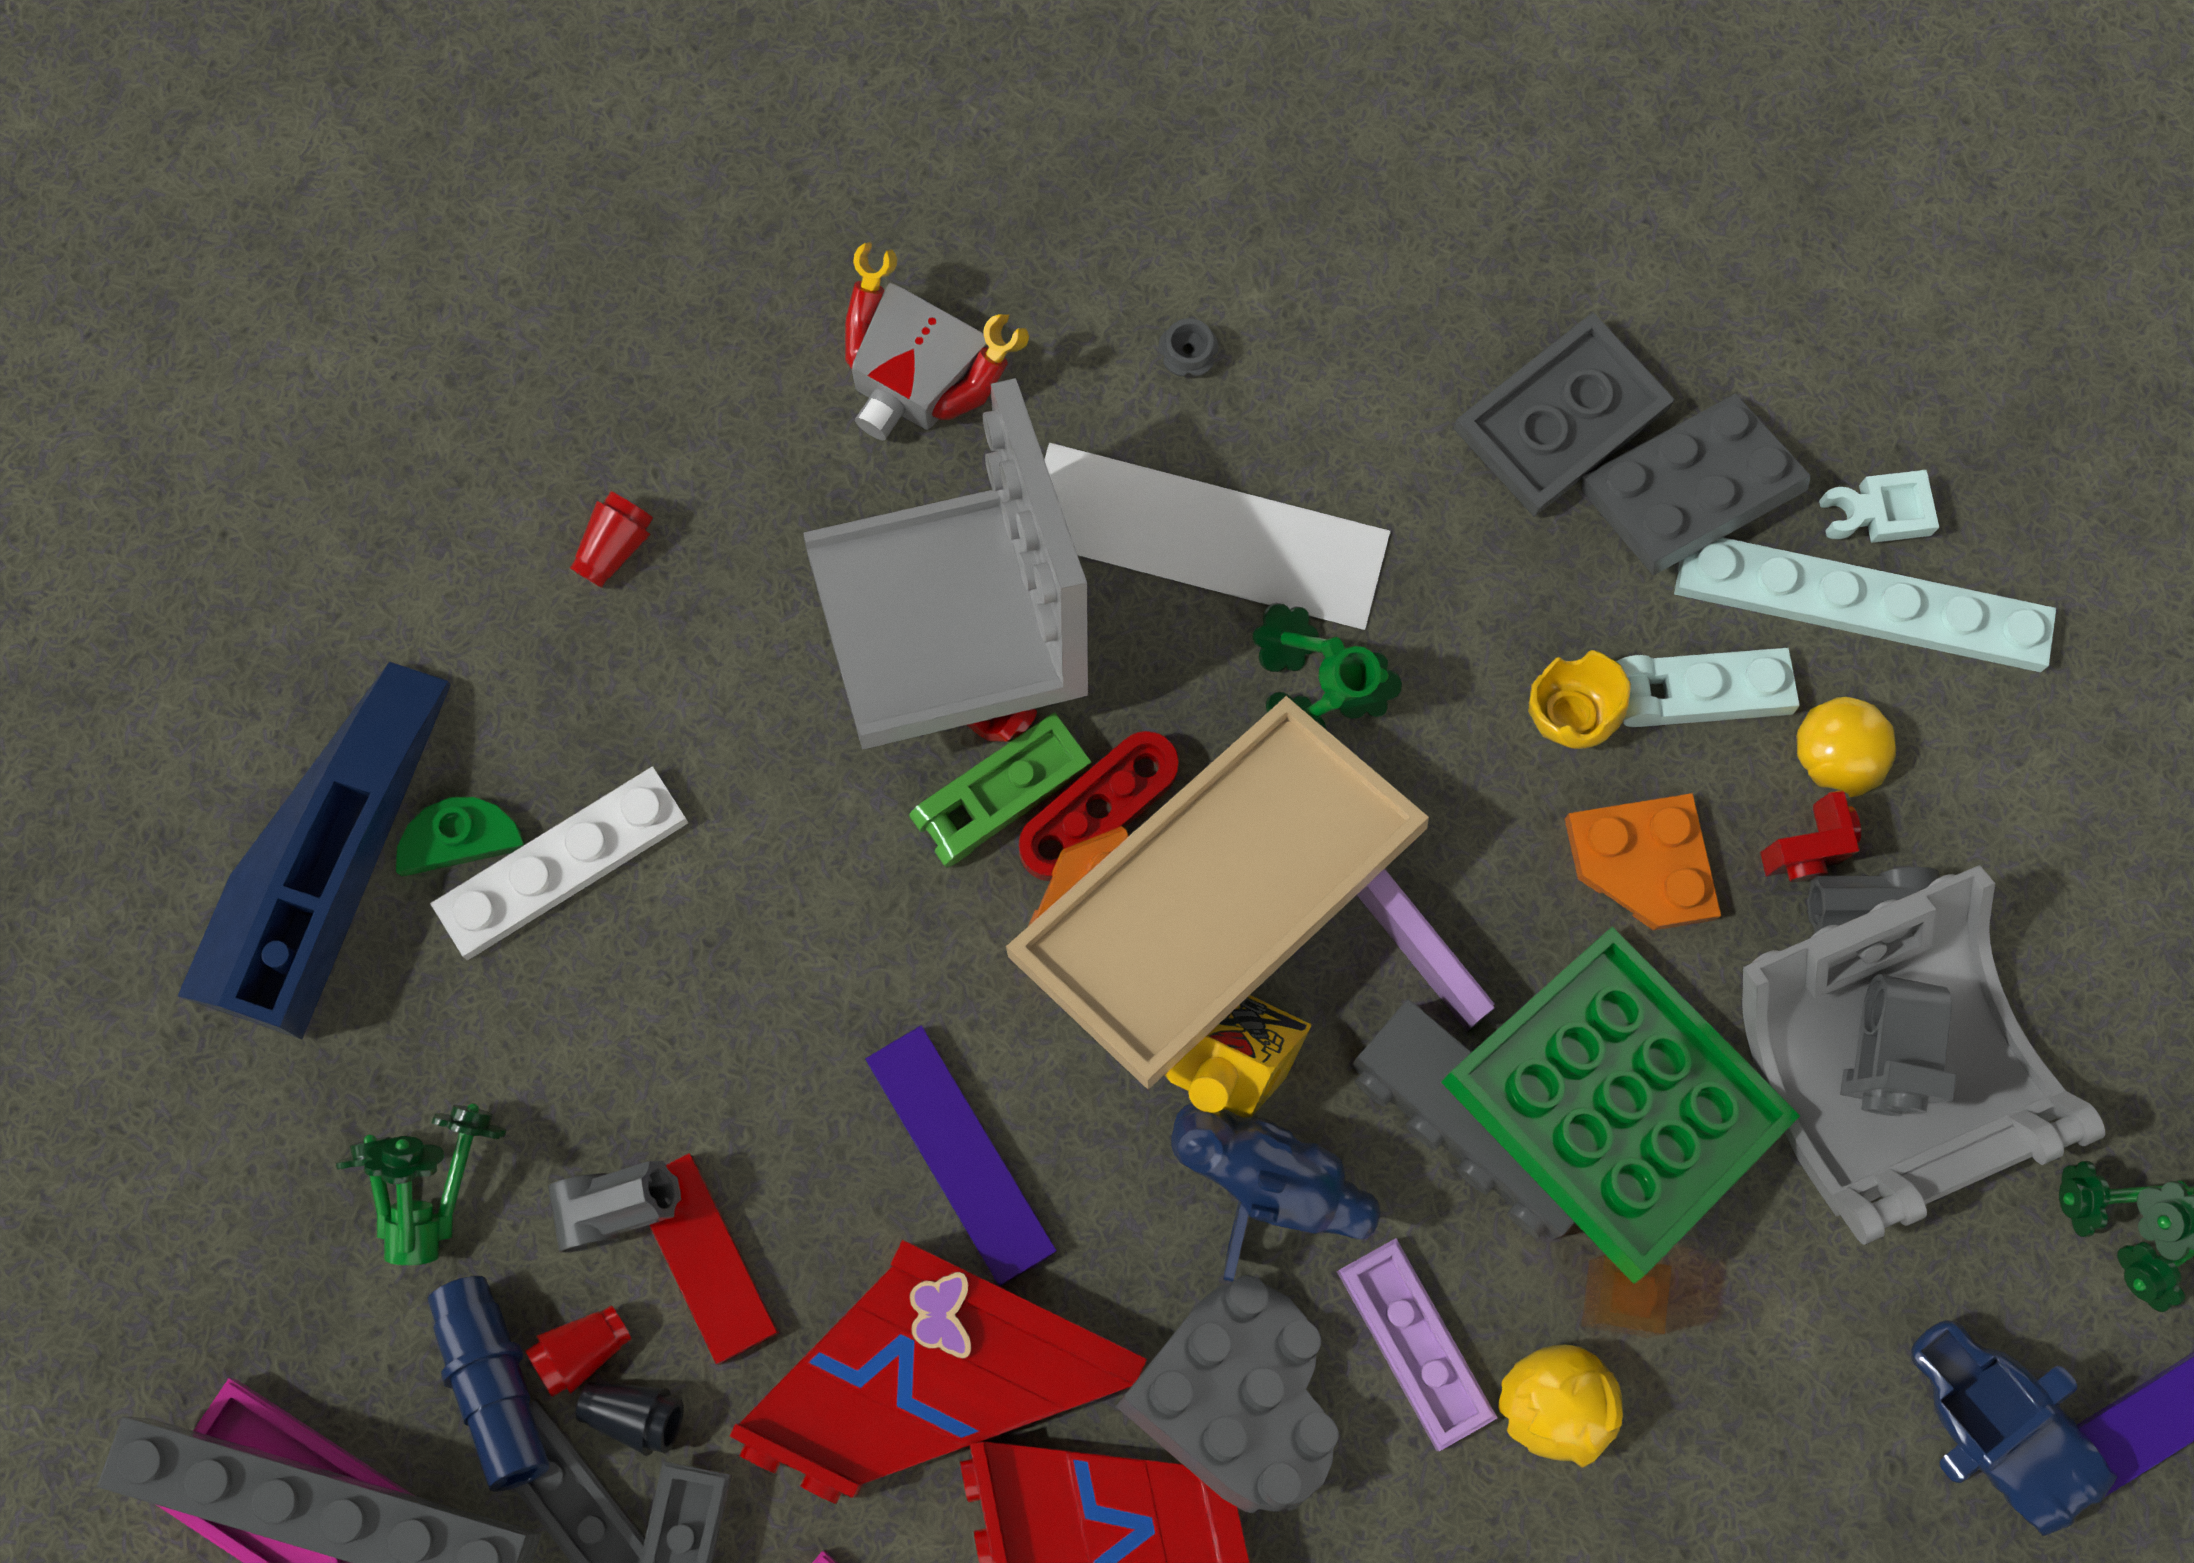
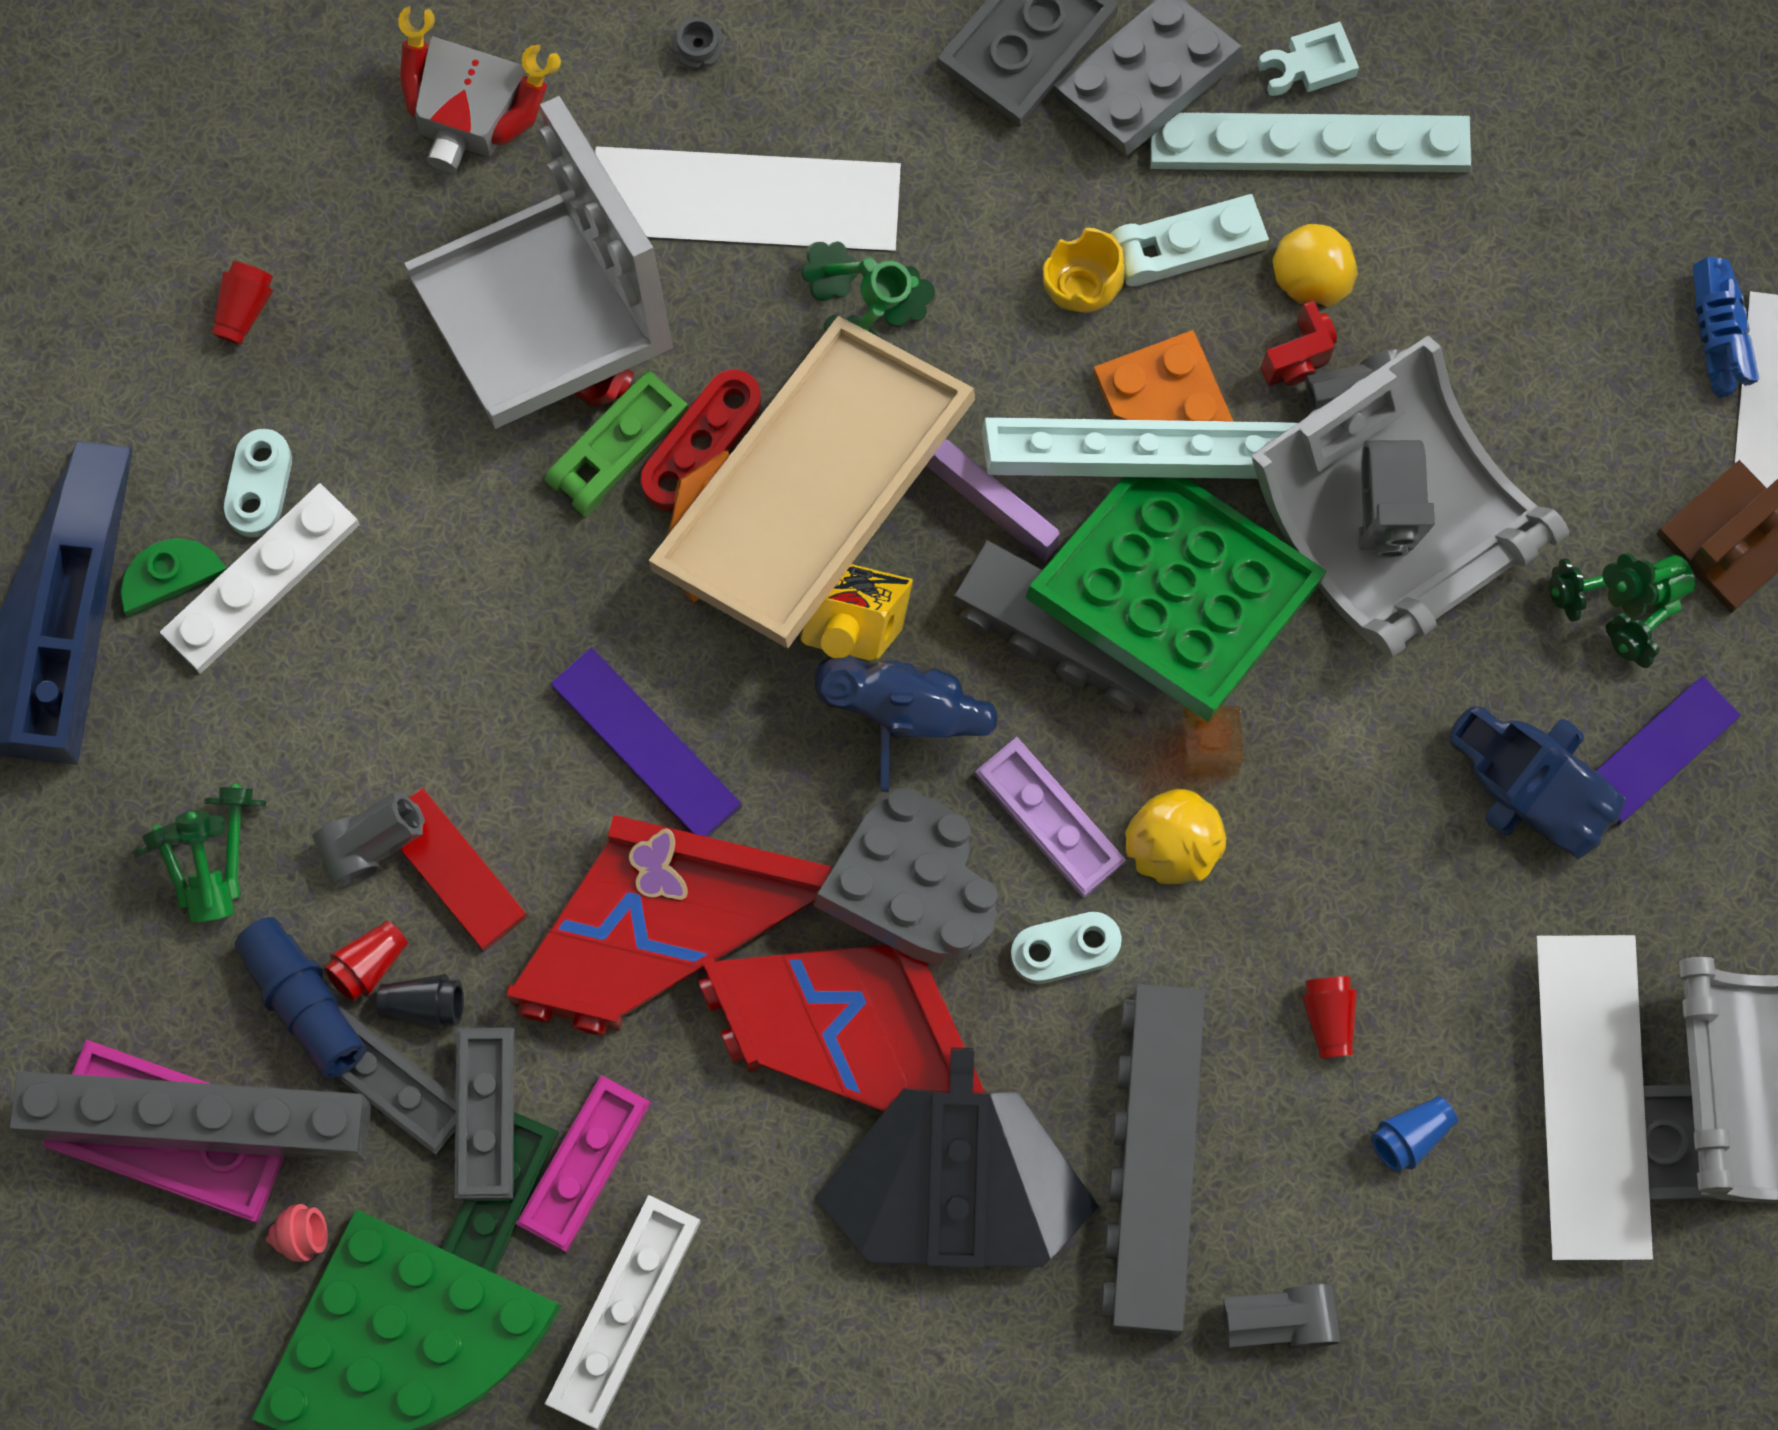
camera: 10 degrees left, 0 degrees up
(584, 749) = (259, 481): none -> light aqua plate
(1406, 1510) = (1066, 946): none -> light aqua plate
(1597, 921) = (1125, 447): none -> light aqua plate

